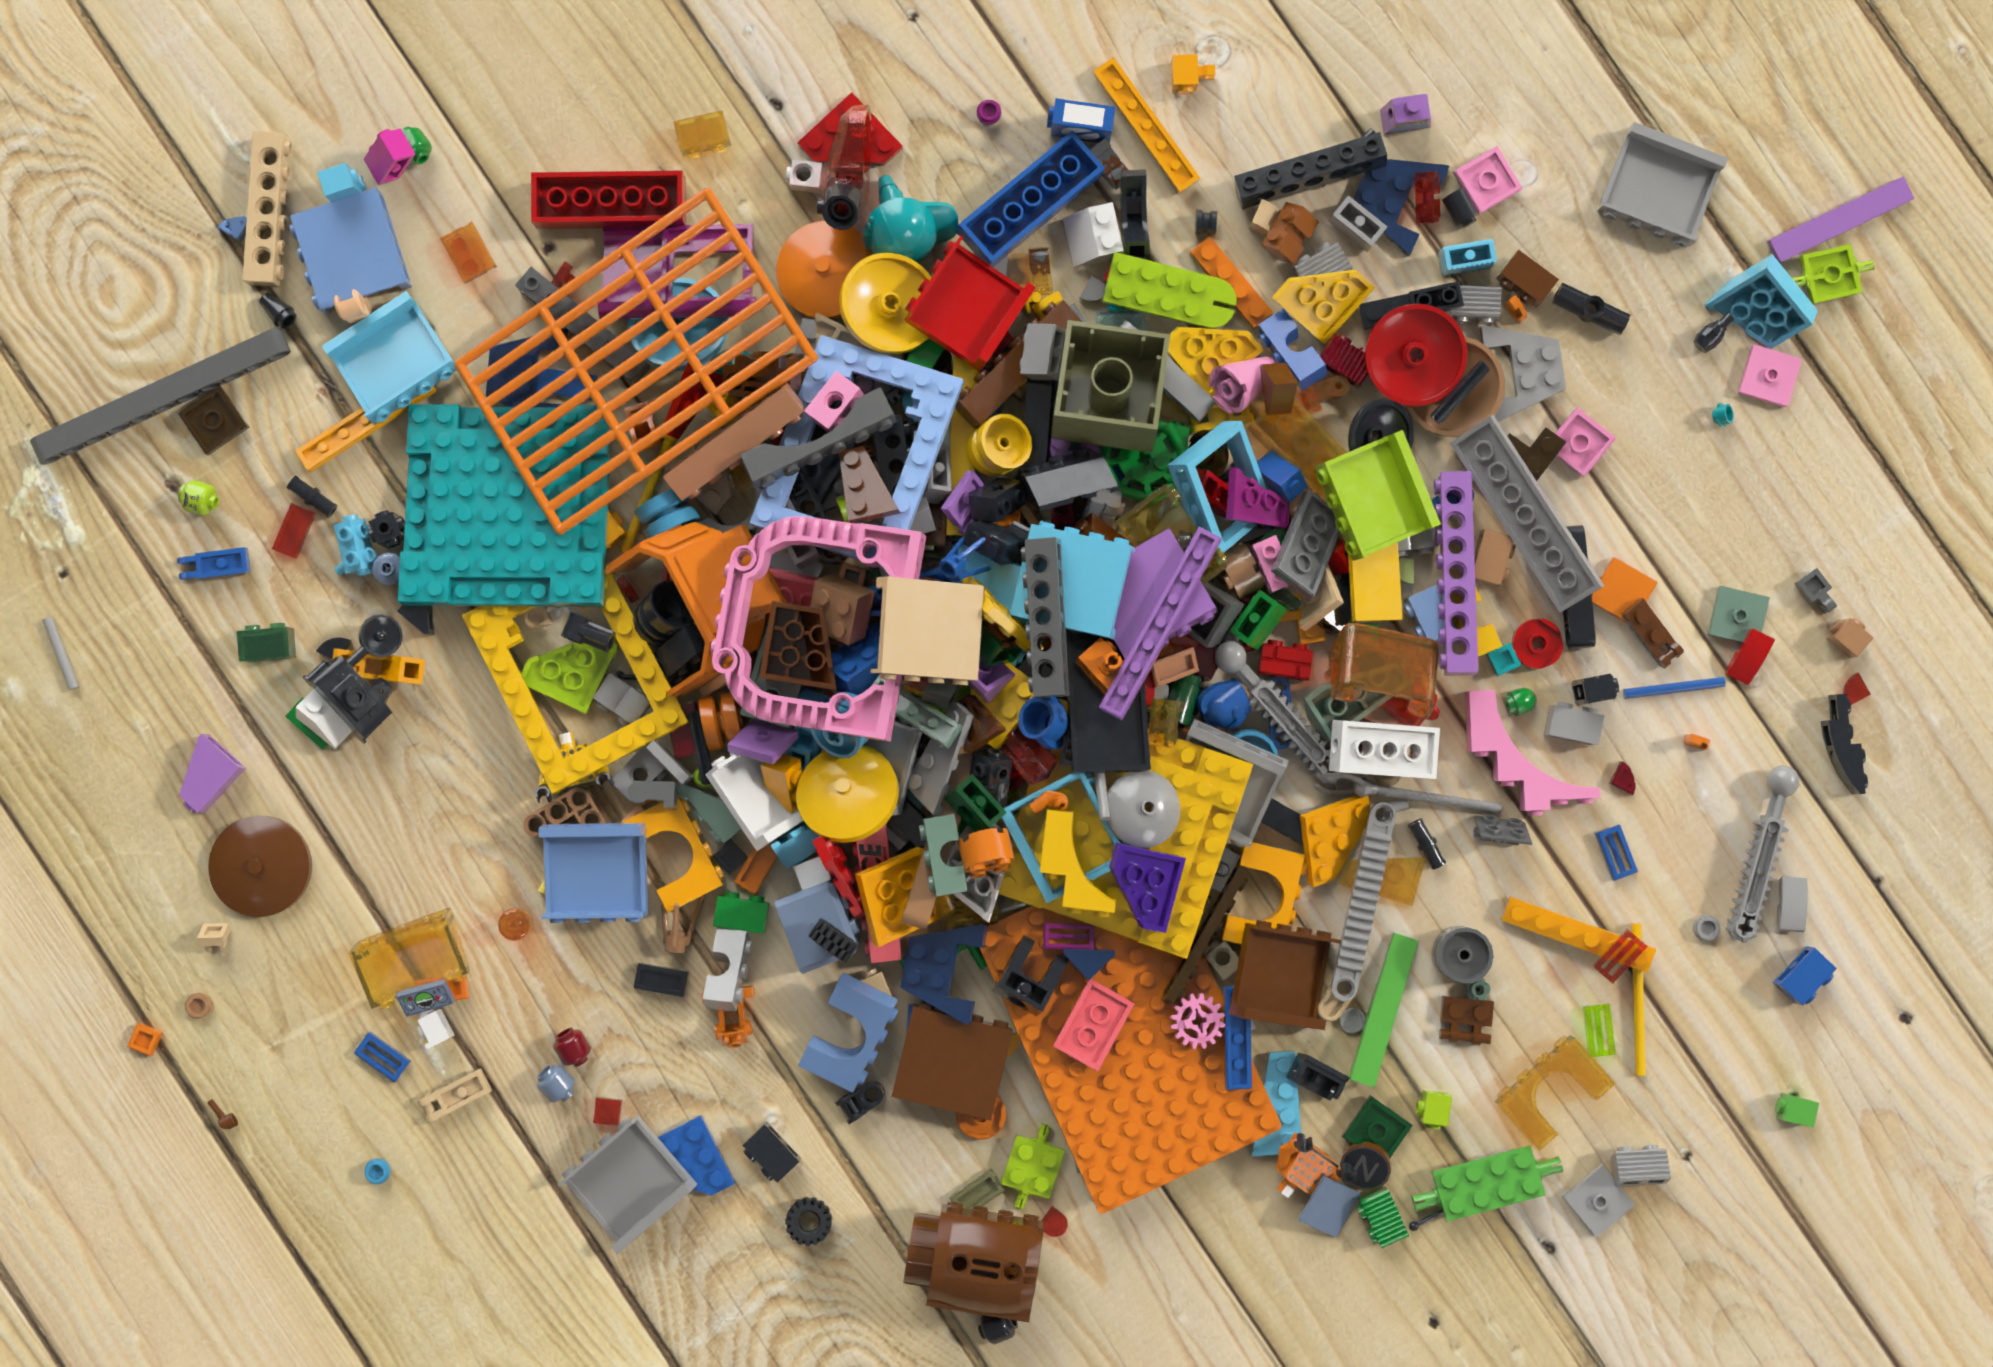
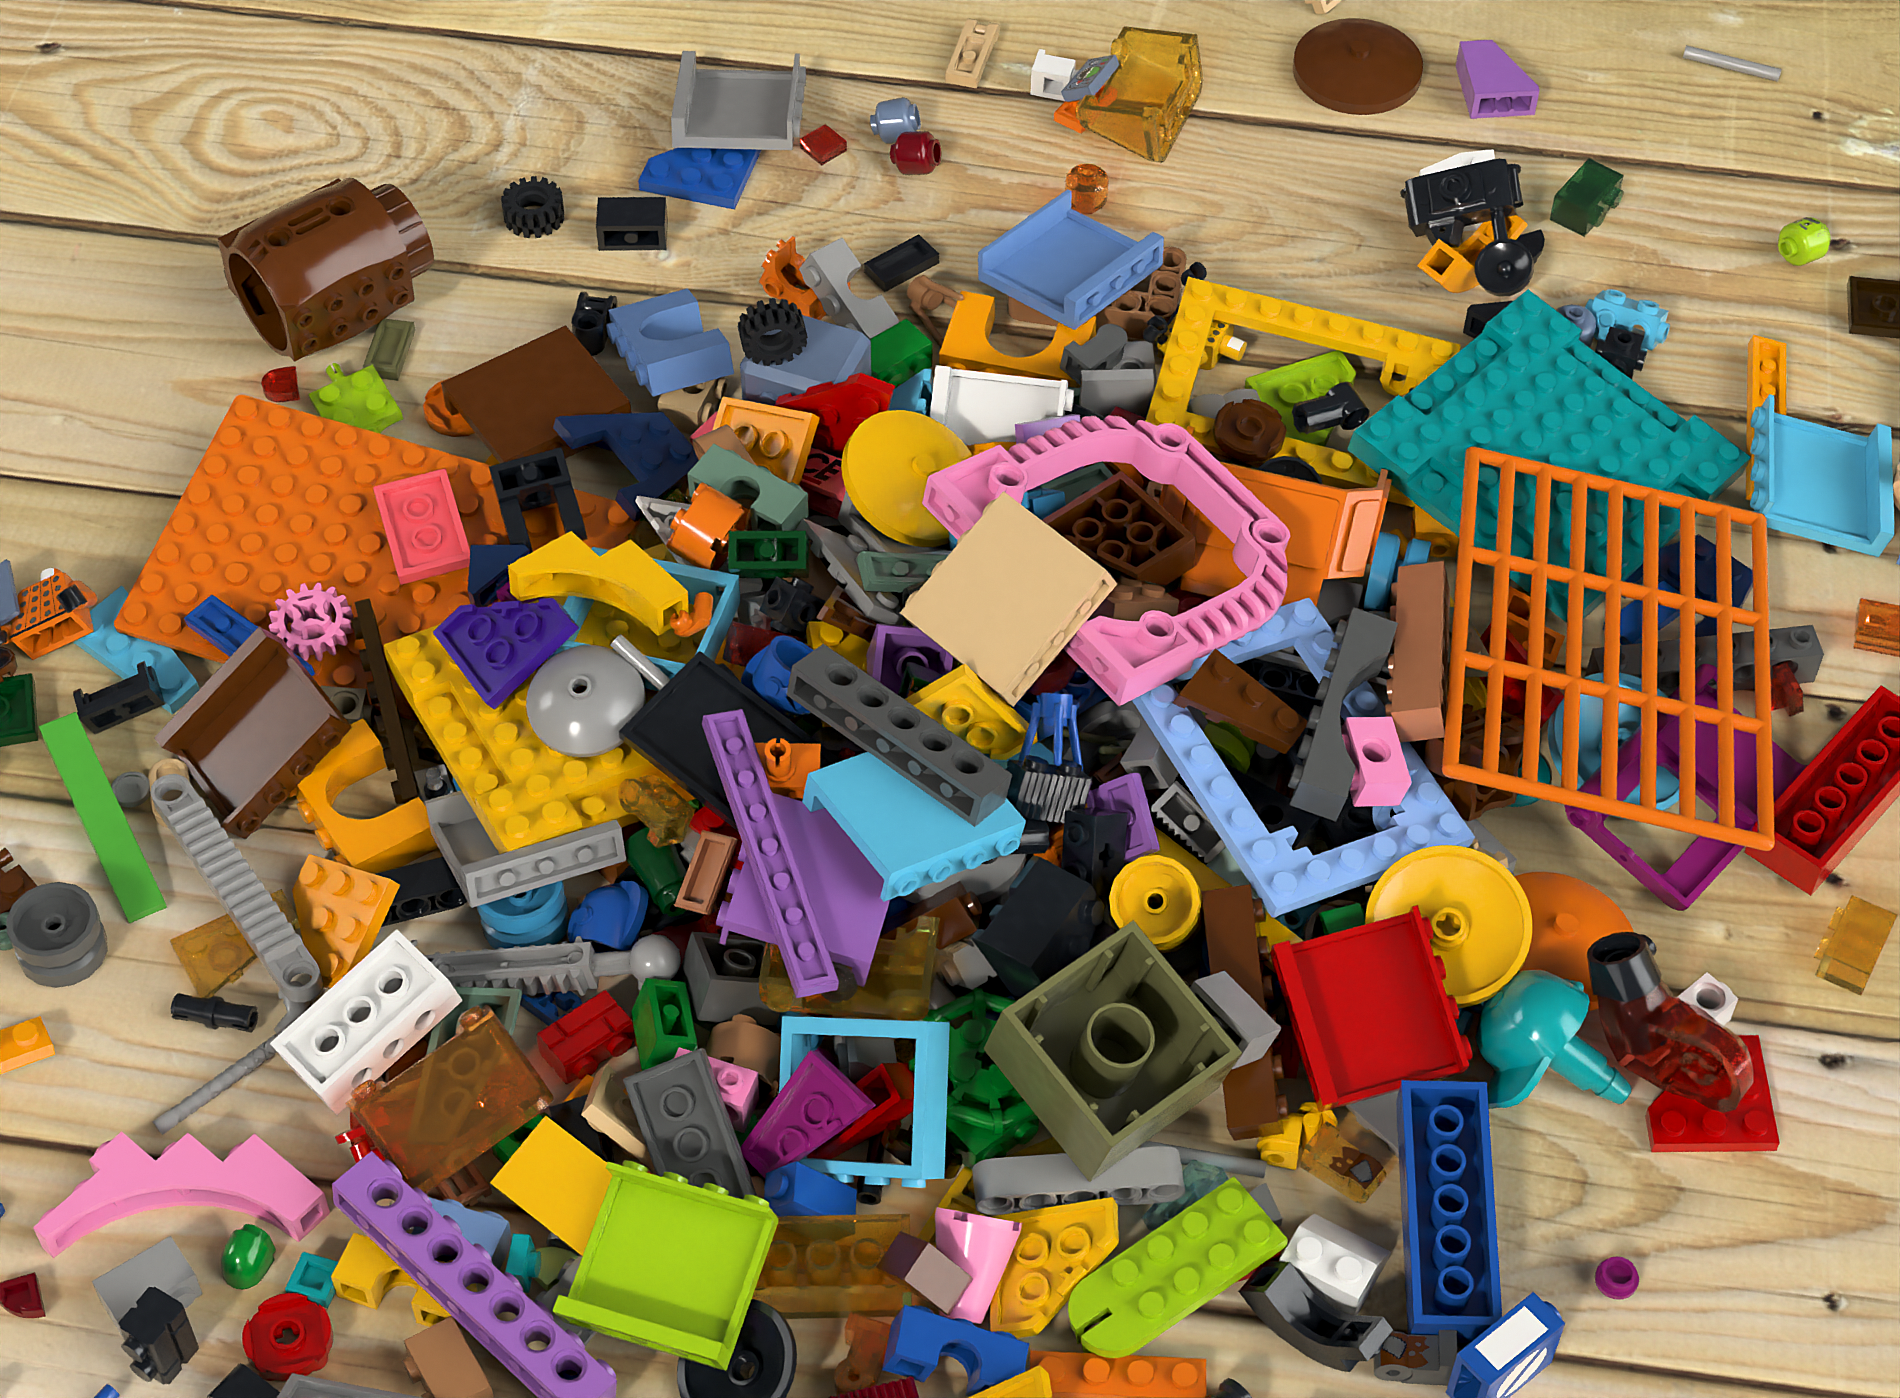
camera: 135 degrees right, 35 degrees down
(216, 563) = (1714, 217): blue hinge -> none
(293, 531) = (1693, 296): clear red tile -> none
(312, 496) = (1718, 328): black pin -> none
(389, 1049) = (1070, 33): blue tile -> none
(640, 663) = (1249, 430): none -> reddish brown tile
(1419, 572) = (523, 1260): none -> teal plate
(1509, 831) = (129, 1089): dark grey hinge -> none

